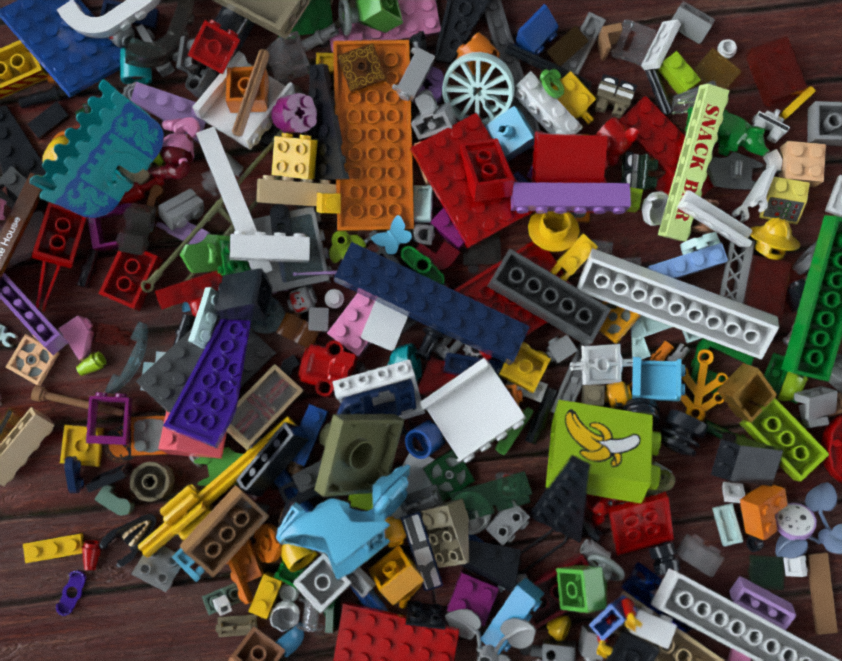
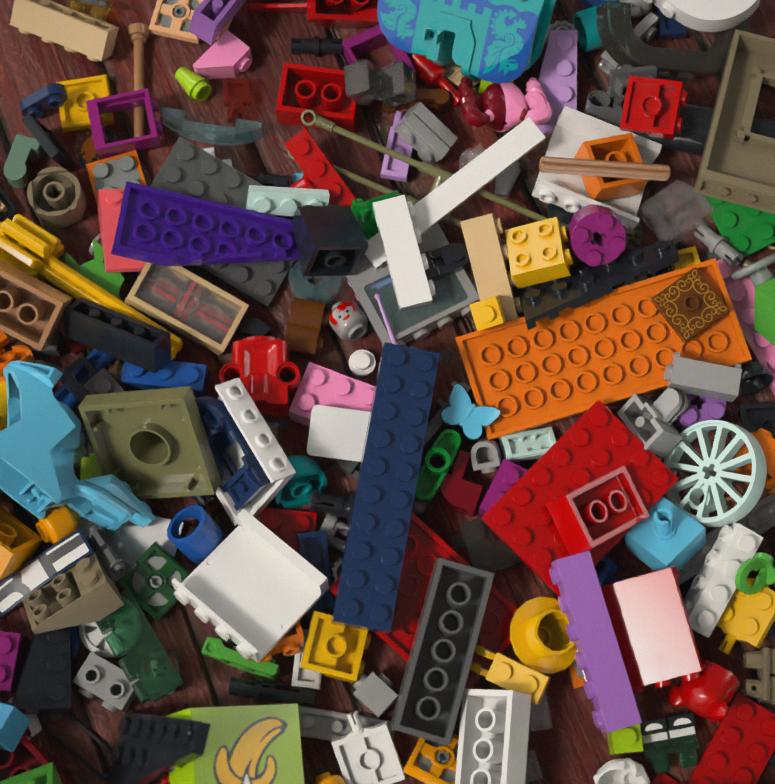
camera: 70 degrees right, 10 degrees down
(204, 255) = (371, 176): bright green shield -> none
(318, 319) = (326, 347): light grey panel -> none
(339, 250) = (447, 366): lime plate -> none
(593, 395) = (319, 758): dark tan brick -> none

